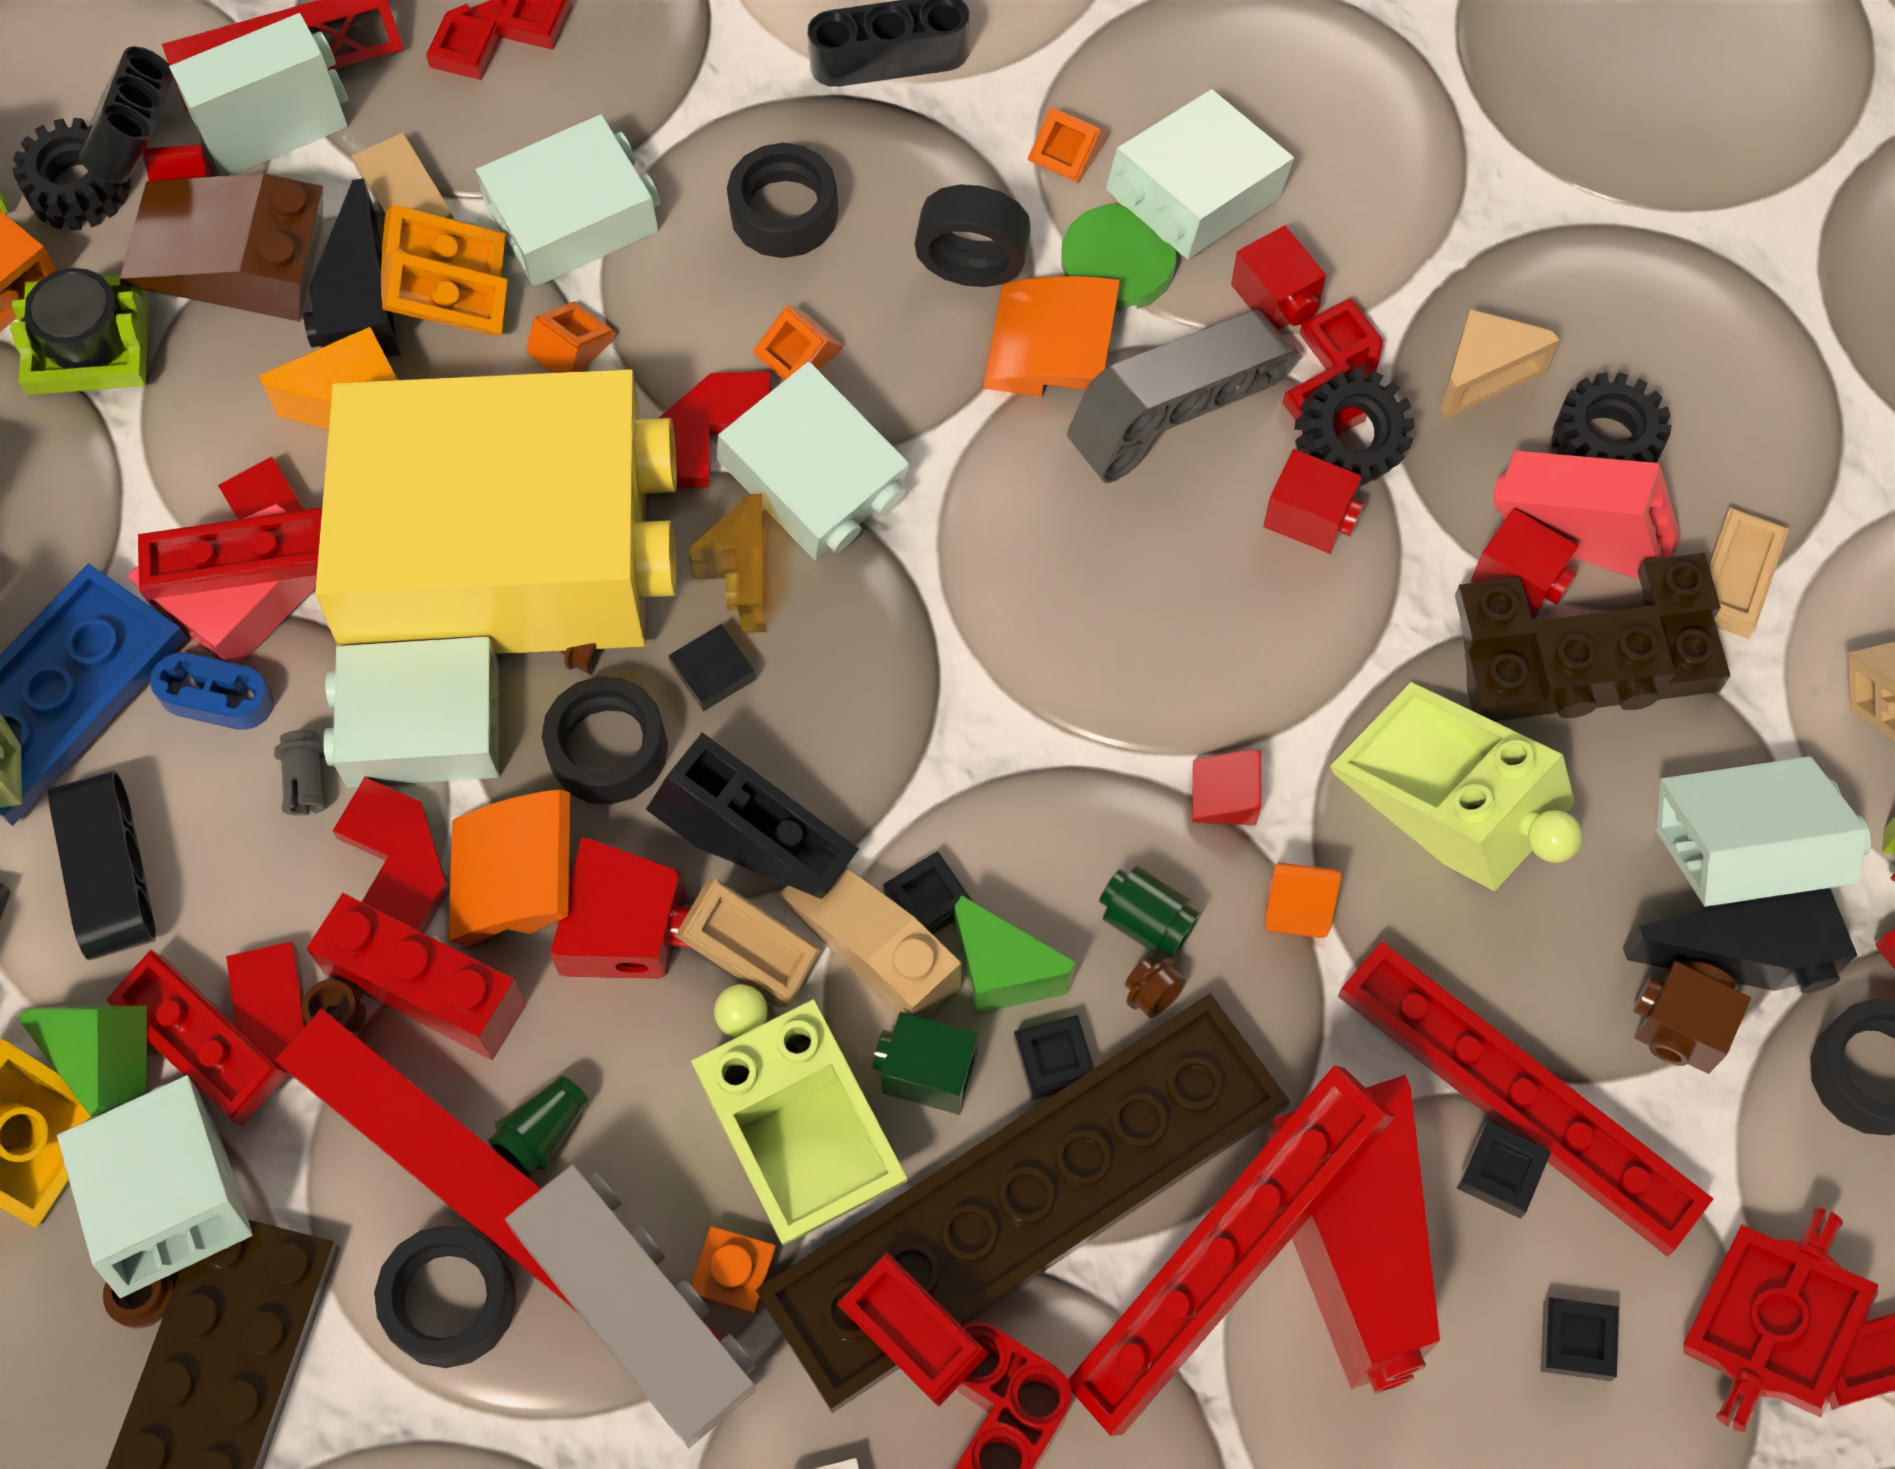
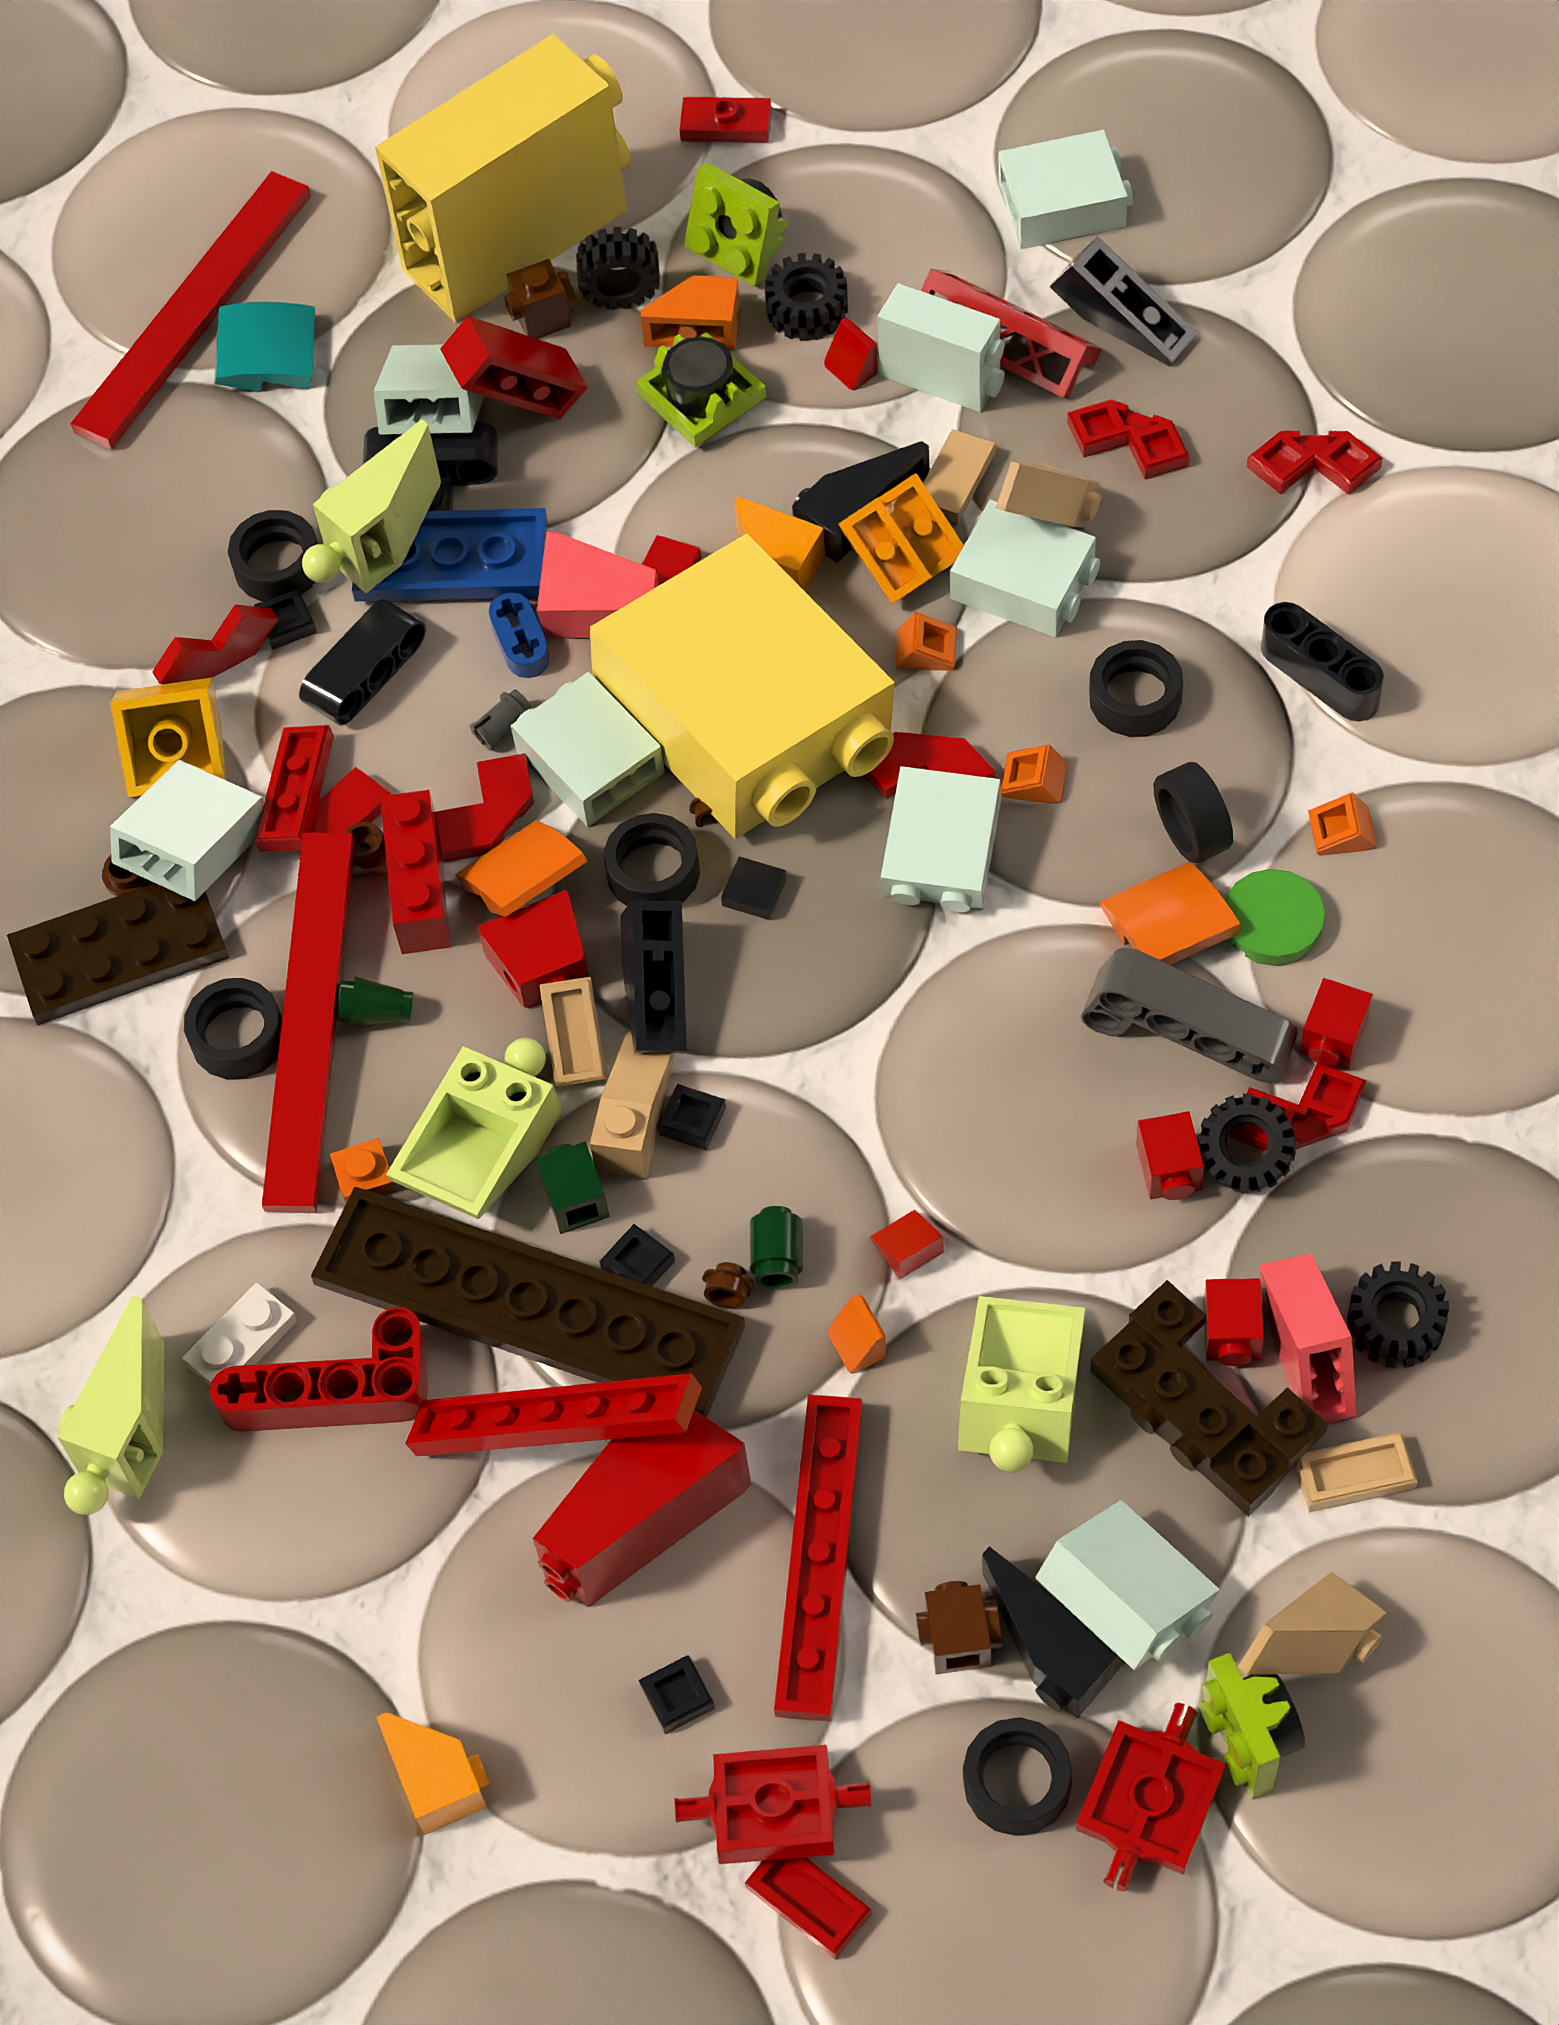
camera: 60 degrees right, 5 degrees down
(94, 1051) = (244, 742): bright green slope -> none
(126, 115) = (858, 289): black beam -> none
(228, 241) = (824, 410): reddish brown slope -> none
(229, 553) = (593, 565): red tile -> none
(523, 114) = (1049, 494): none -> tan slope
(632, 1305) = (291, 1121): light grey brick -> none
(737, 552) = (846, 845): clear yellow slope -> none
(913, 1329) = (385, 1281): red tile -> none
(1006, 963) = (669, 1184): bright green slope -> none
(1199, 173) = (1375, 916): light aqua brick -> none
(1495, 358) = (1384, 1198): tan slope -> none
(1504, 1170) = (750, 1568): black tile -> none

